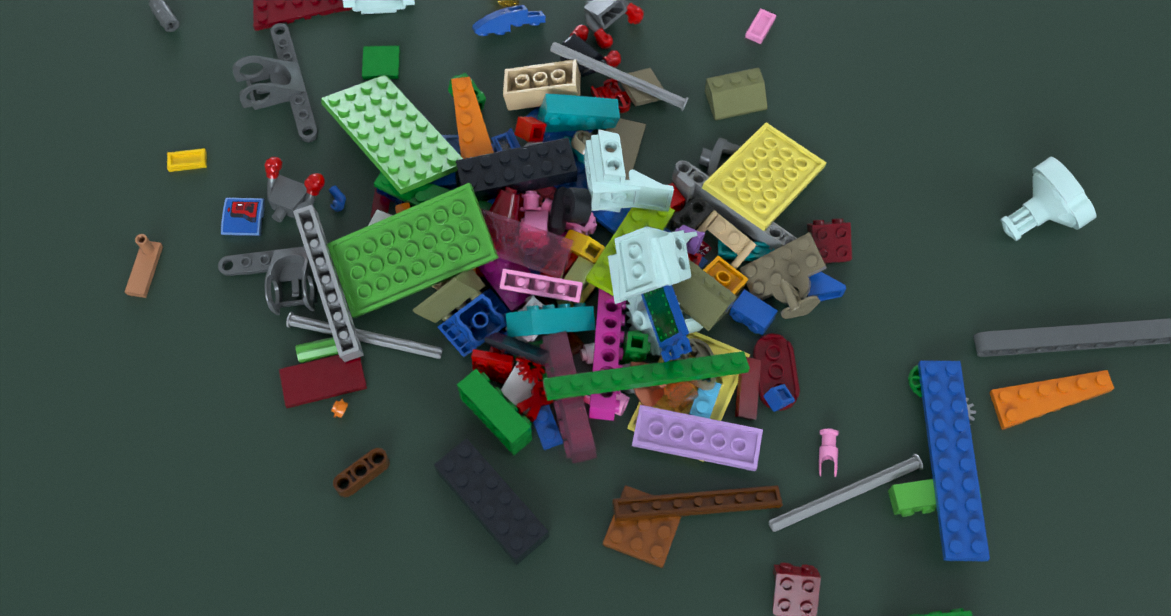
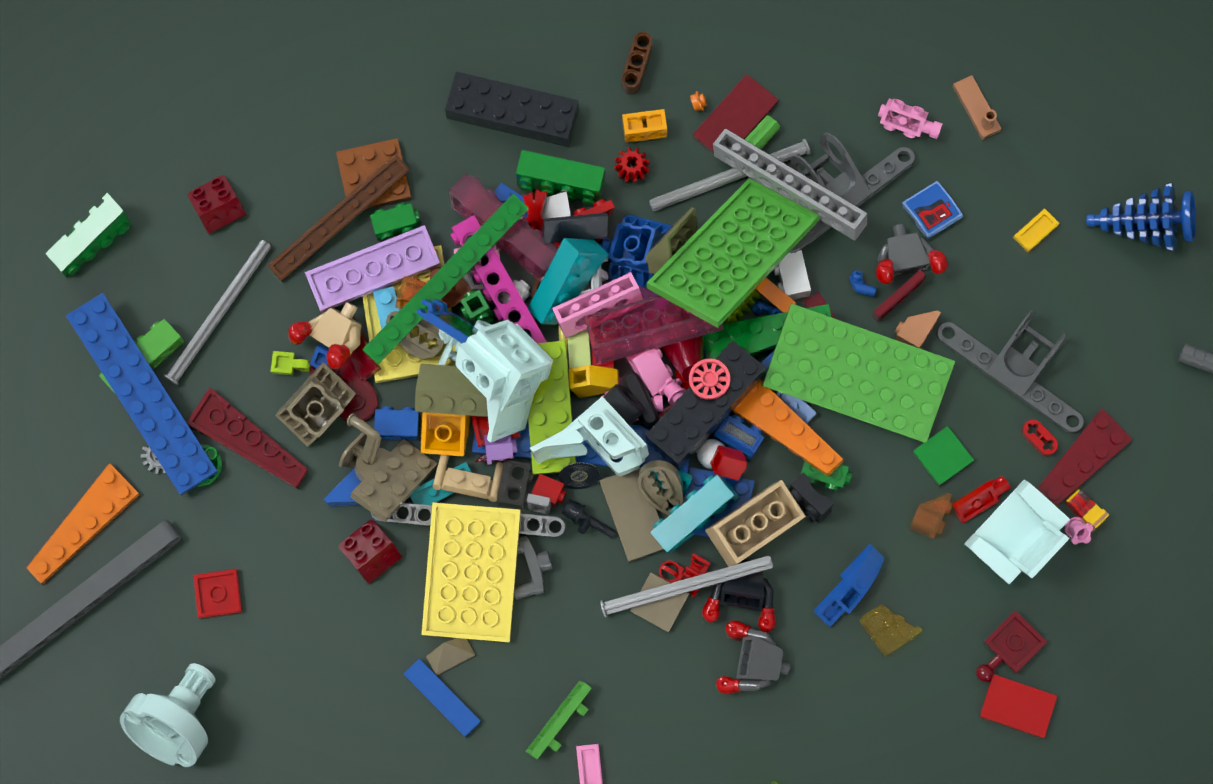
camera: 150 degrees right, 10 degrees up
(104, 104) = (1151, 218): none -> blue plant
(199, 286) = (904, 119): none -> bright pink brick
(305, 35) = (1043, 434): none -> red beam
(325, 144) = (917, 328): none -> nougat slope
(329, 172) = (897, 297): none -> dark red tile
(377, 22) = (980, 499): none -> red hinge
(397, 412) = (644, 126): none -> light orange brick
(420, 31) = (930, 515): none -> clear orange slope
(423, 390) = (632, 157): none -> red gear
(492, 80) = (815, 504): none -> black brick
(502, 173) = (709, 379): none -> coral wheel
(652, 468) = (394, 221): none -> green brick
(659, 170) = (574, 511): none -> black piece
(736, 93) = (560, 657): olive slope -> none
(759, 407) = (333, 329): none -> tan torso
(765, 58) = (556, 722): none -> bright green hinge
(809, 363) = (315, 404): none -> dark tan slope
(813, 415) = (285, 363): none -> lime plate
(814, 143) = (450, 655): none -> dark tan slope
(828, 449) = (255, 340): bright pink piece -> none
(836, 120) = (442, 698): none -> blue tile
(886, 388) = (234, 431): none -> dark red wing
(964, 281) = (217, 593): none -> red tile

